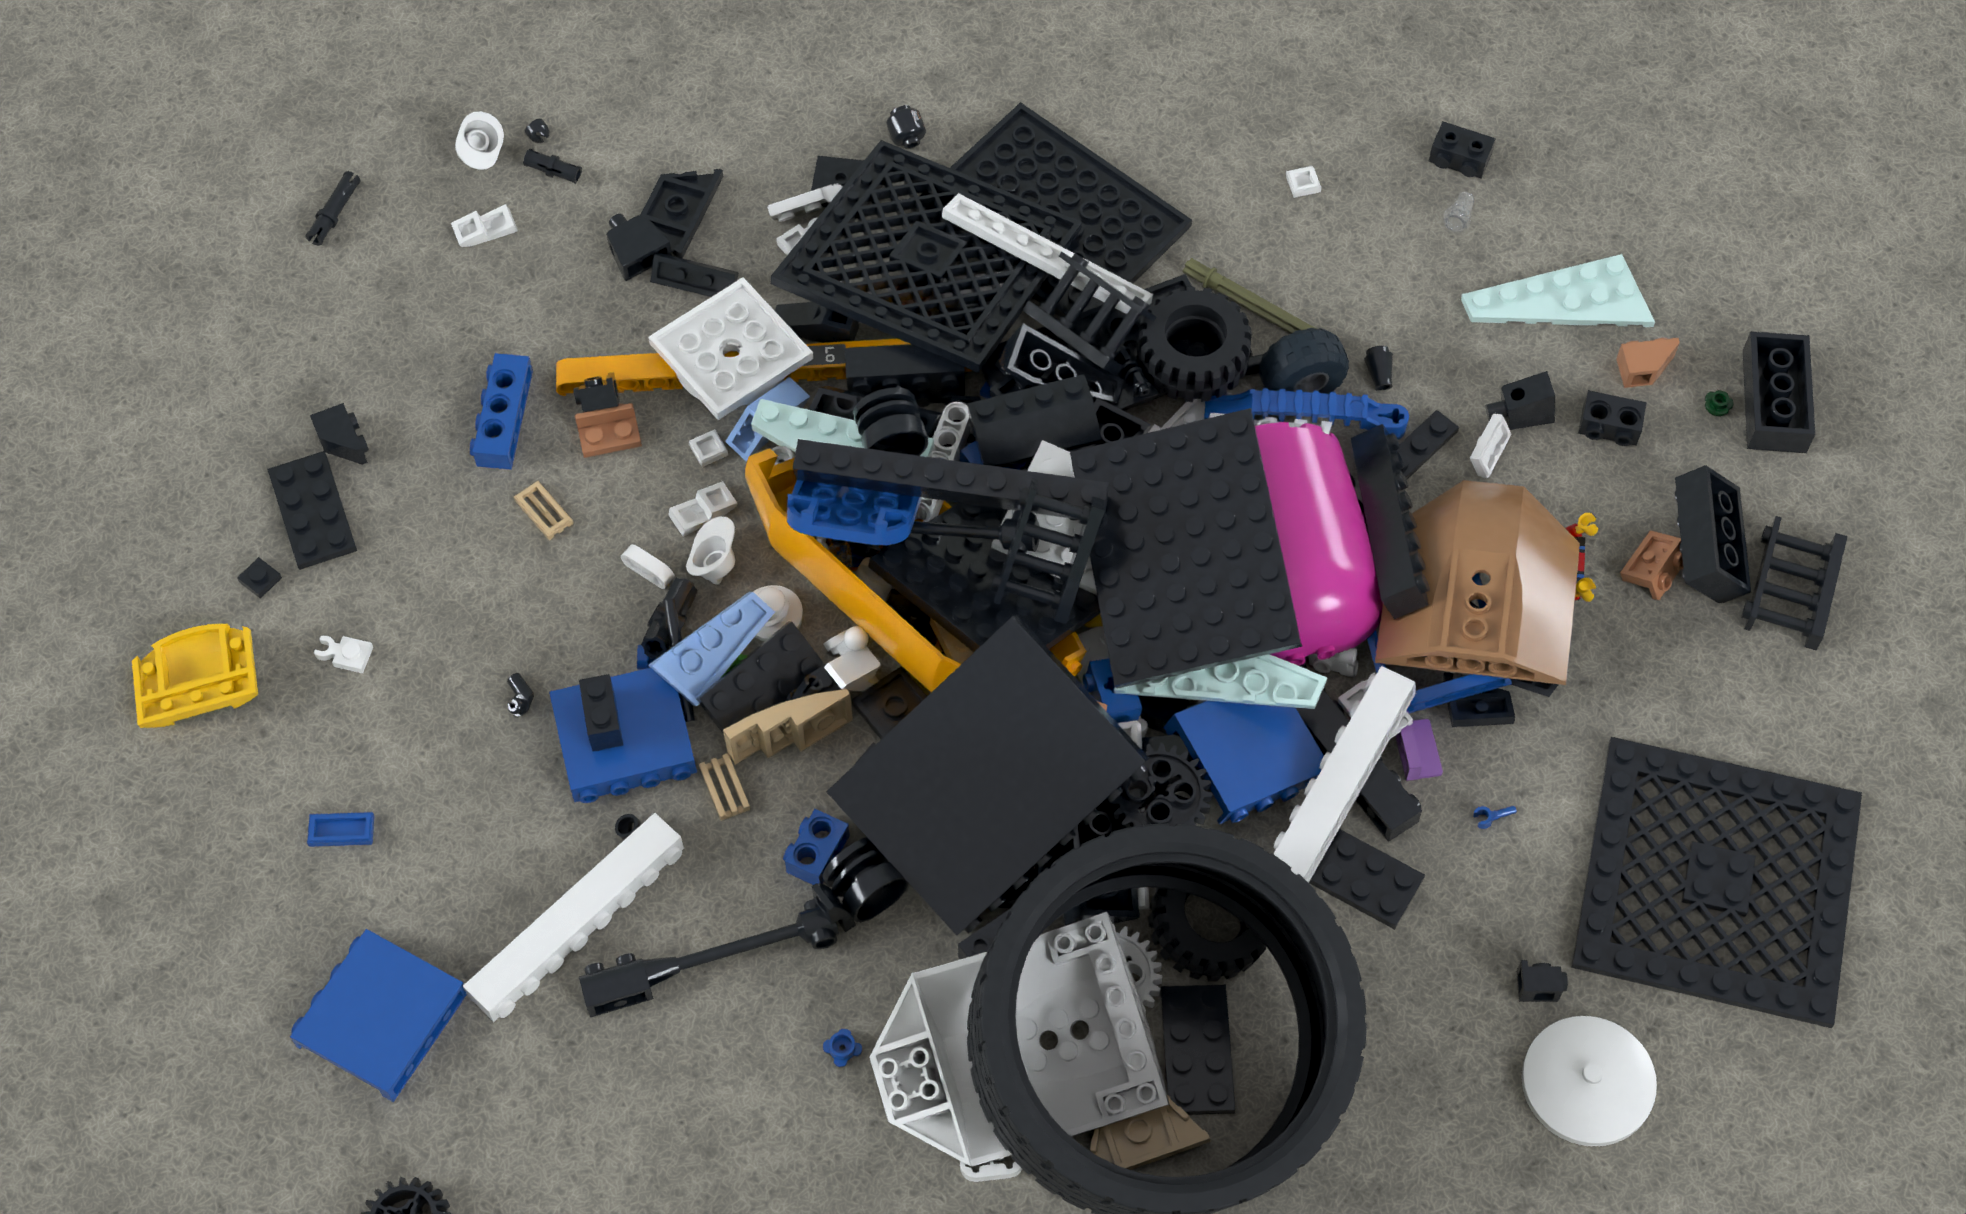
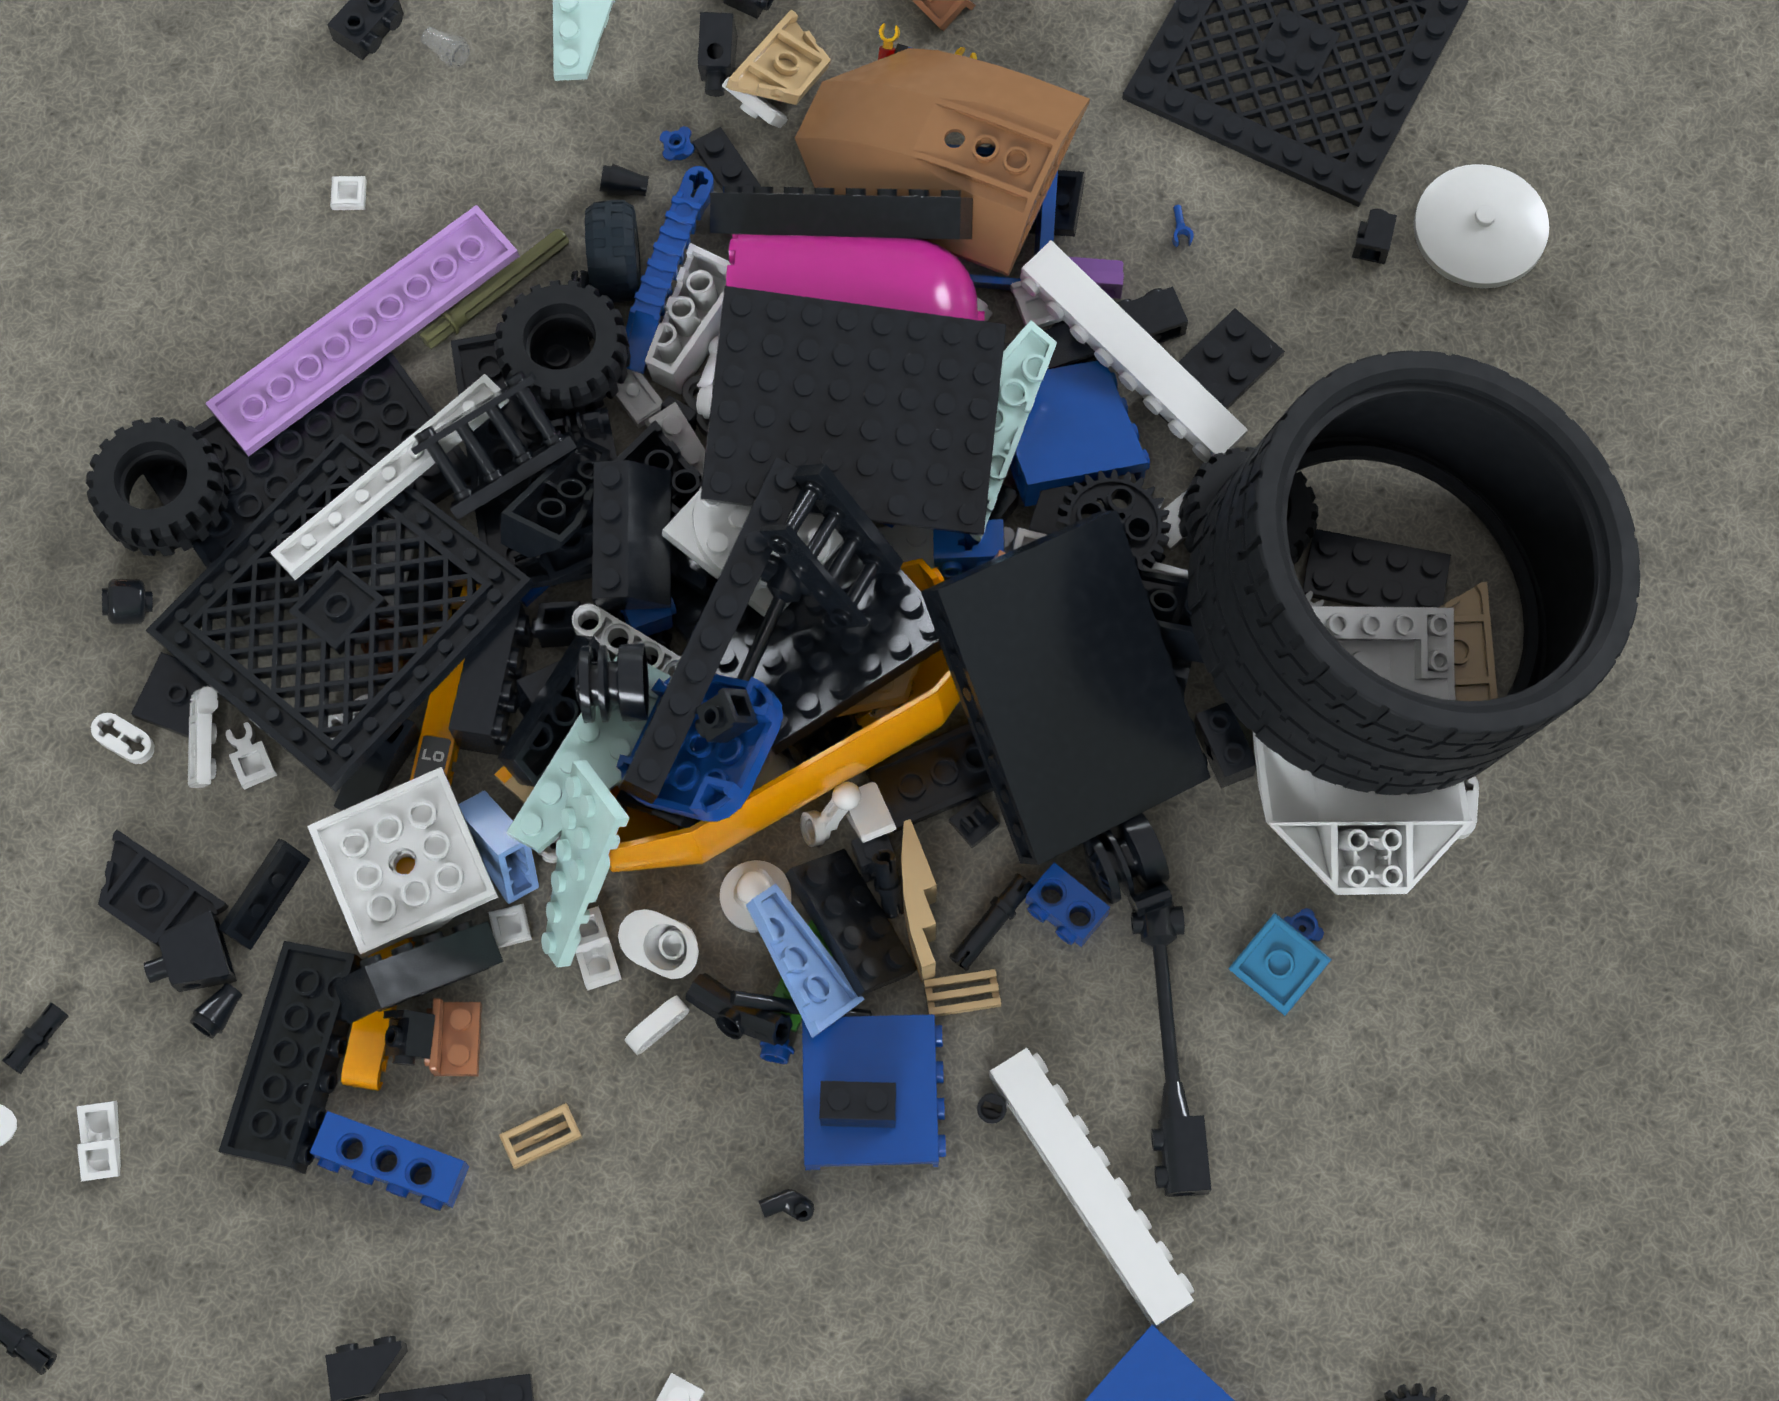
camera: 75 degrees left, 10 degrees up
(569, 328) = (291, 1060): none -> black bracket
(596, 271) = (215, 1011): none -> black cone
(649, 385) = (417, 970): none -> black wedge
(738, 453) = (582, 859): none -> light aqua wing
(792, 155) = (126, 731): none -> white beam
(803, 799) = (992, 921): none -> black pin
(803, 1032) = (1280, 964): none -> dark azure plate
(867, 492) = (719, 719): none -> black brick
(997, 85) = (133, 454): none -> black tyre
(1180, 216) = (362, 330): none -> lavender plate
(1430, 405) = (679, 151): none -> blue plate
(1533, 456) = (782, 64): none -> tan wing

